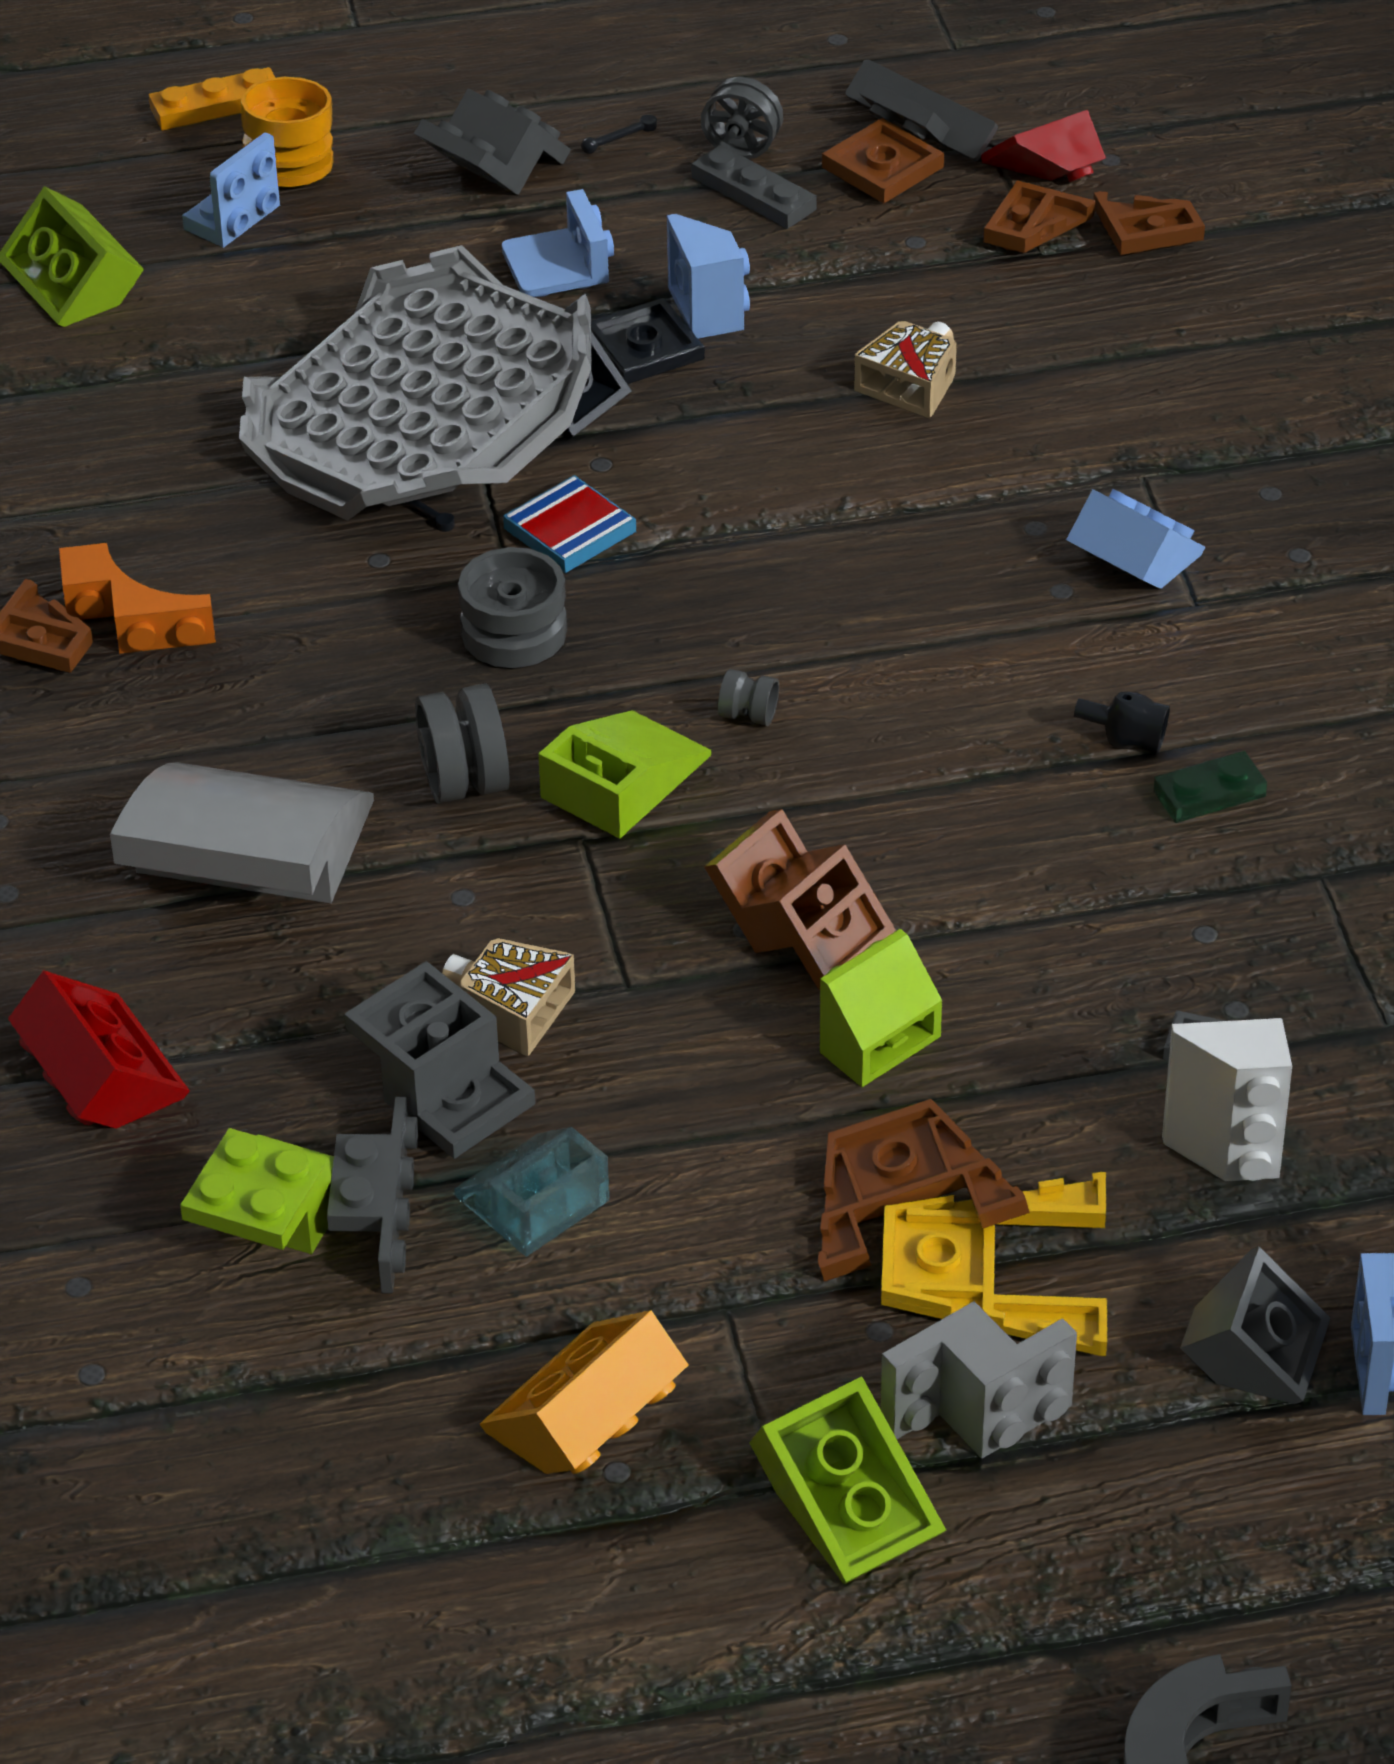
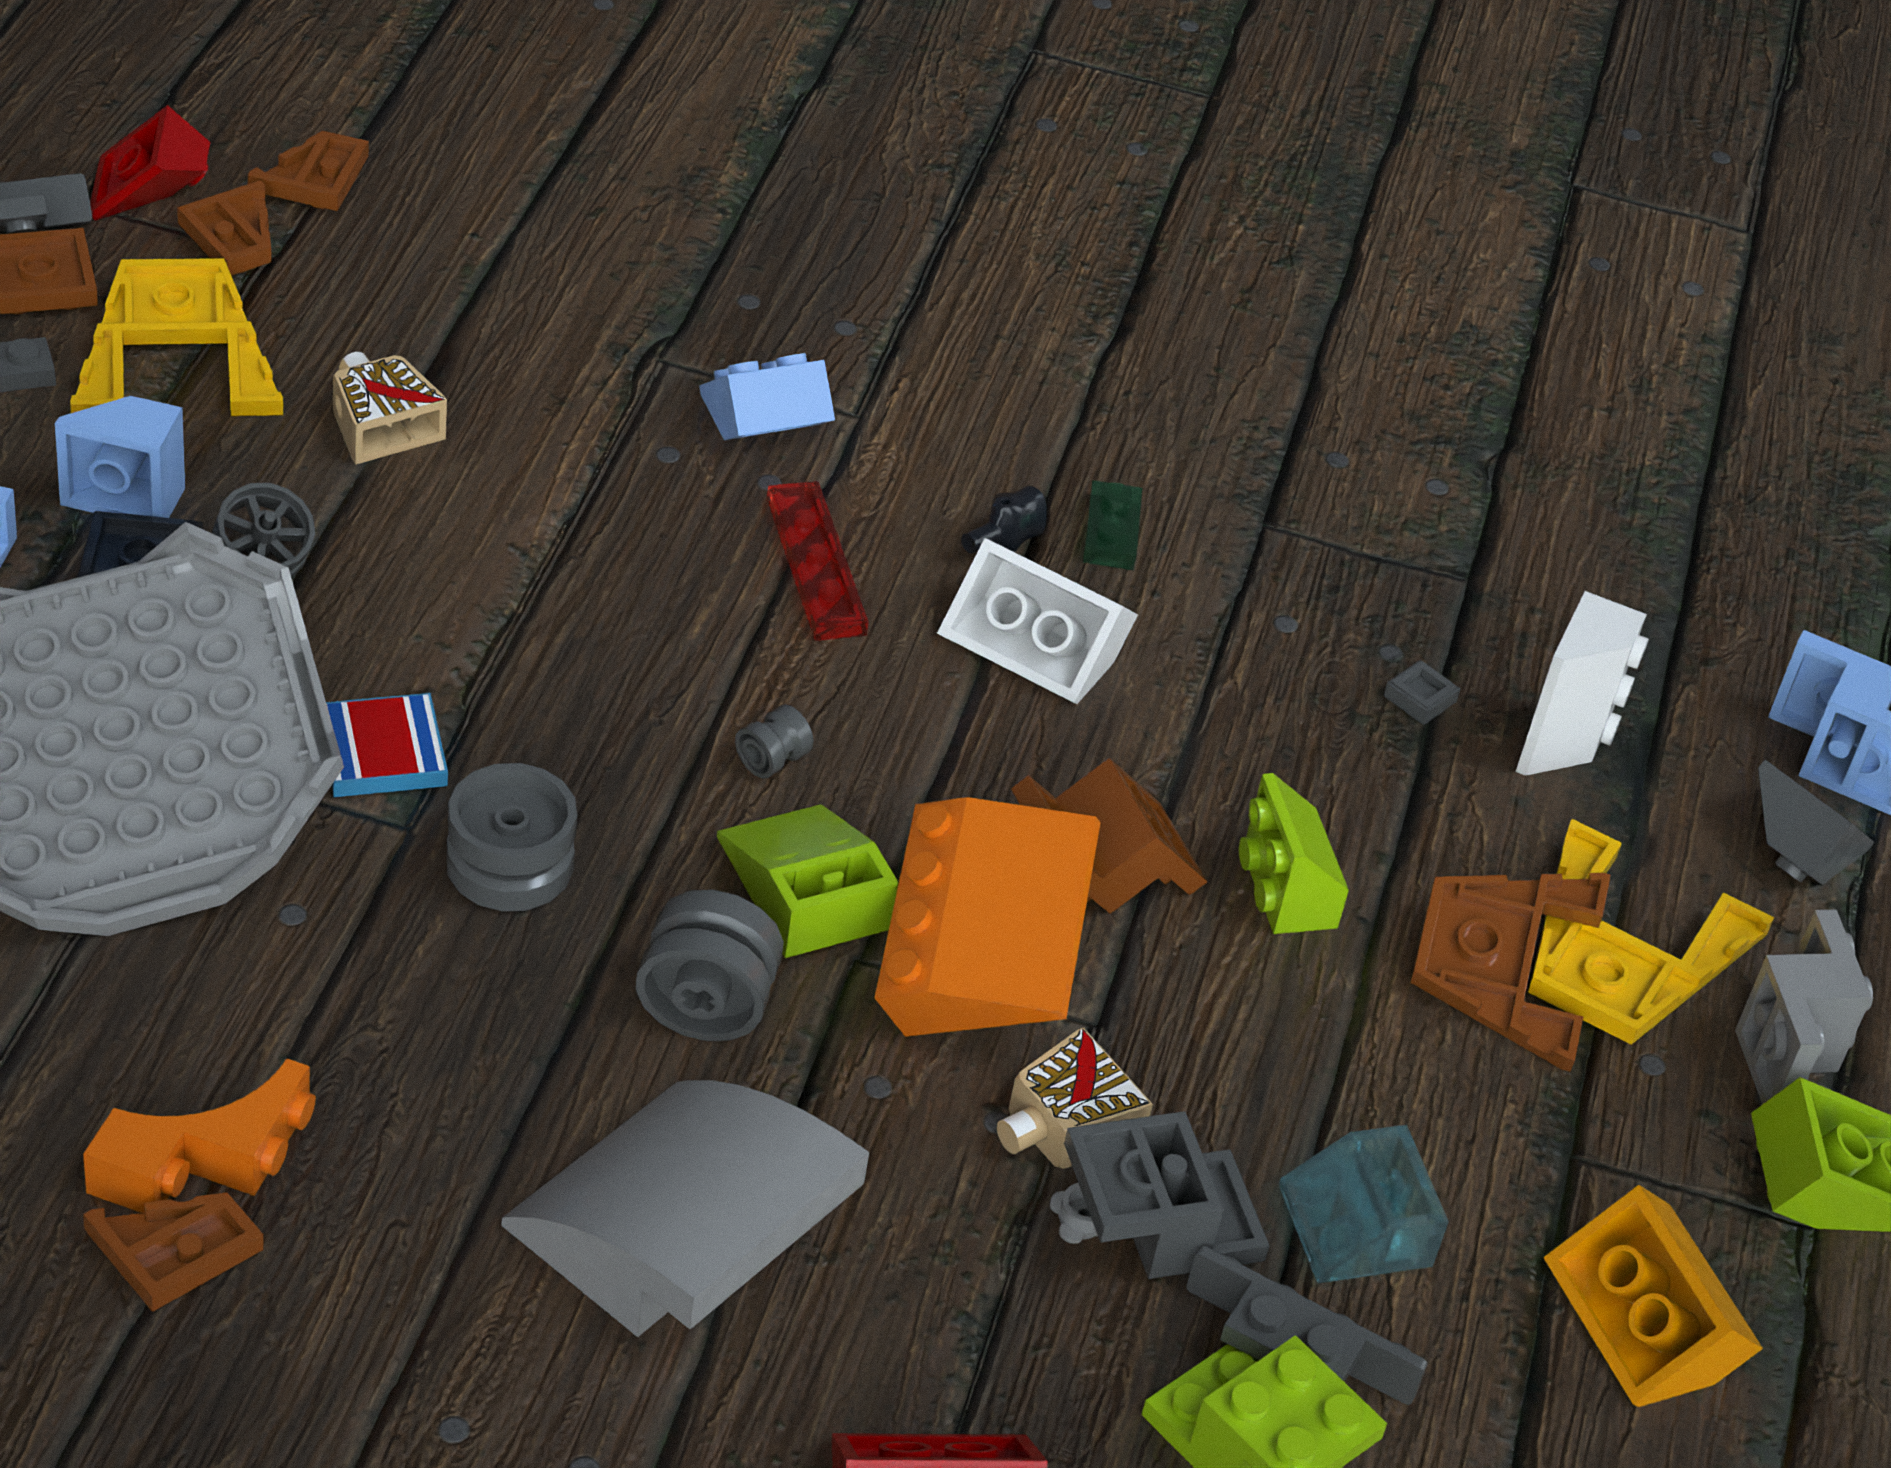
camera: 70 degrees left, 0 degrees up
(623, 844) = (986, 916): none -> orange slope
(706, 371) = (266, 530): none -> dark grey wheel
(908, 226) = (177, 305): none -> yellow wing
(989, 646) = (817, 561): none -> clear red tile
(1030, 780) = (1036, 622): none -> white slope

